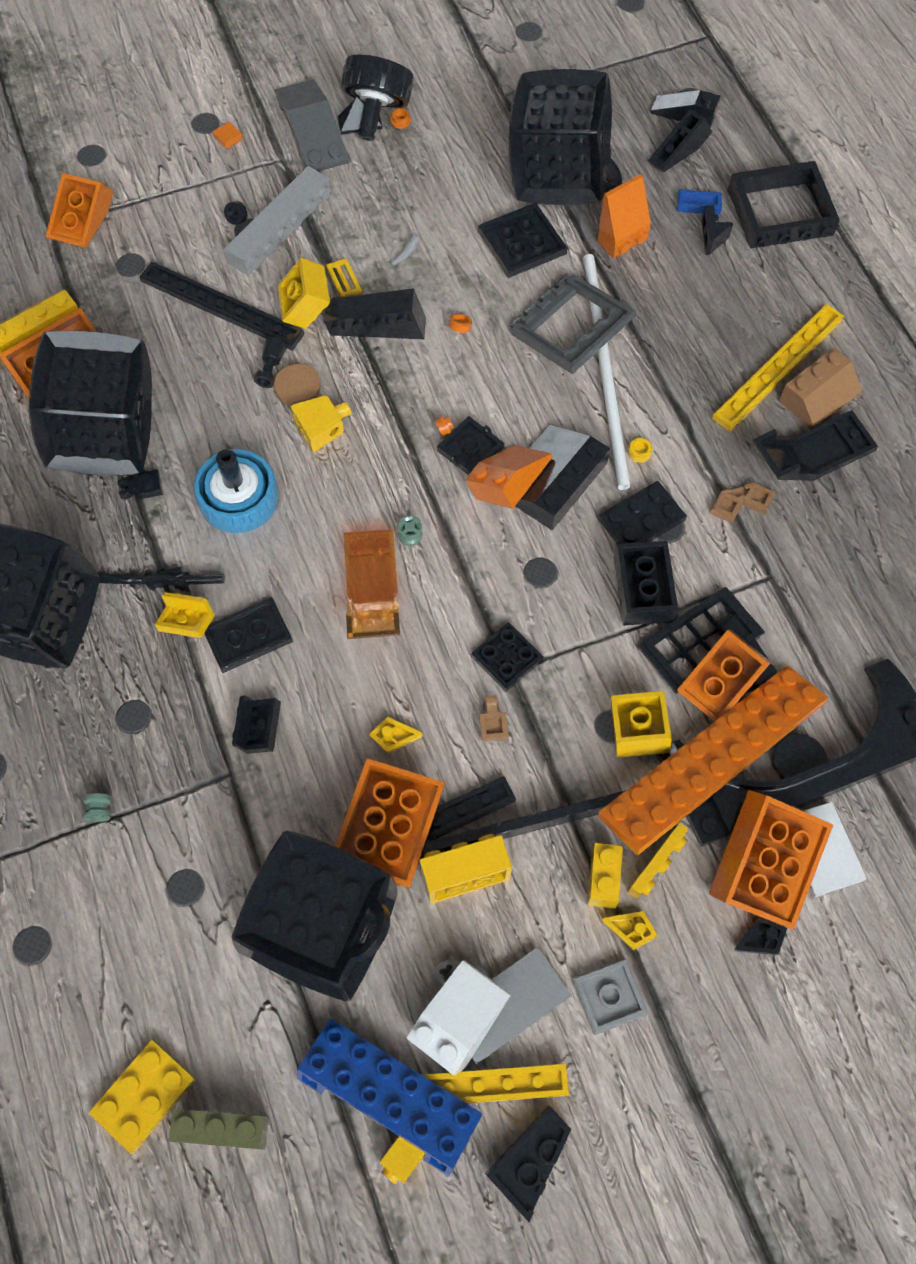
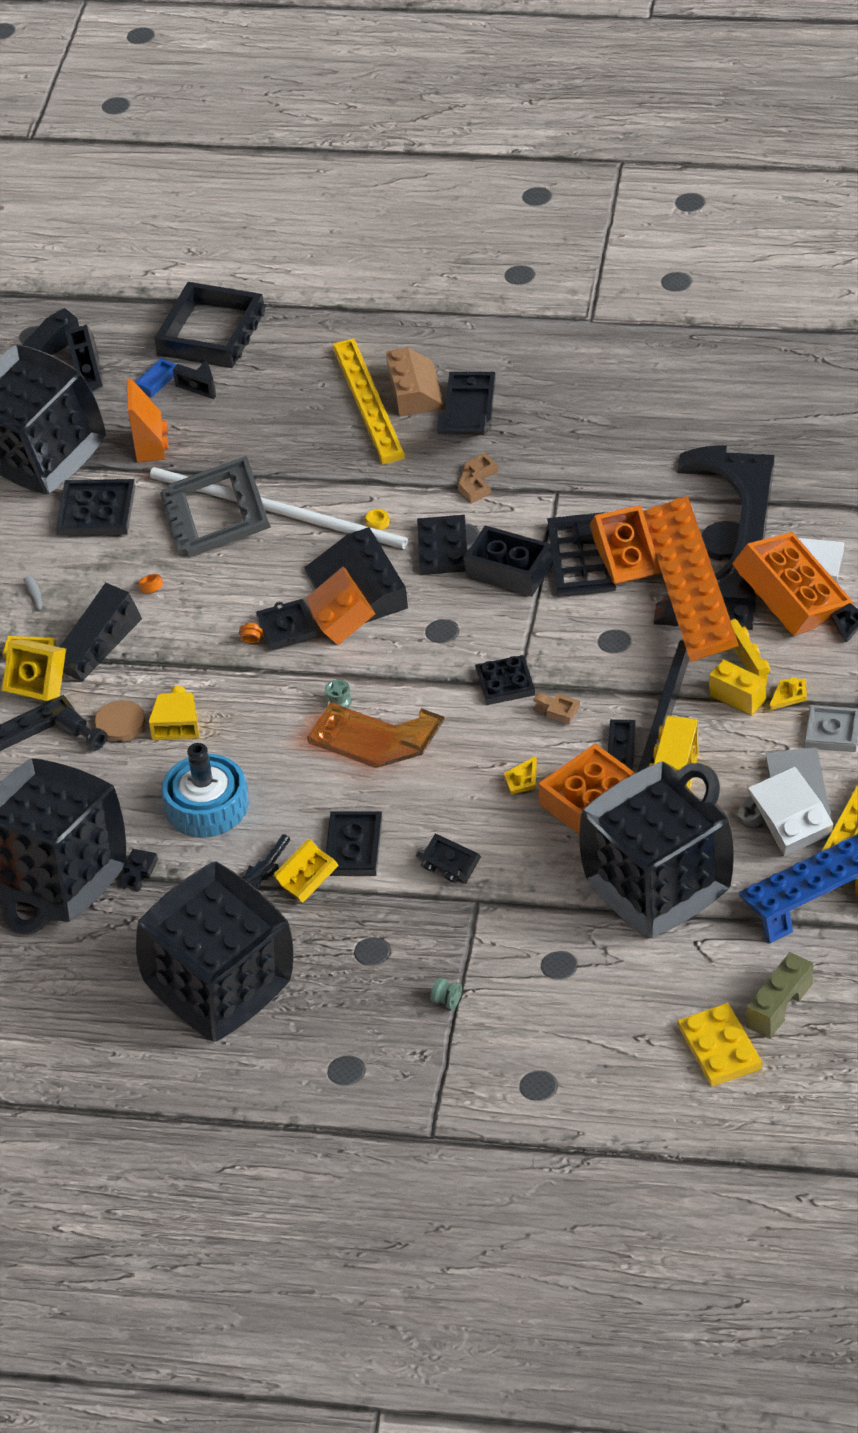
camera: 55 degrees left, 20 degrees down
(640, 724) = (629, 612): yellow brick -> none

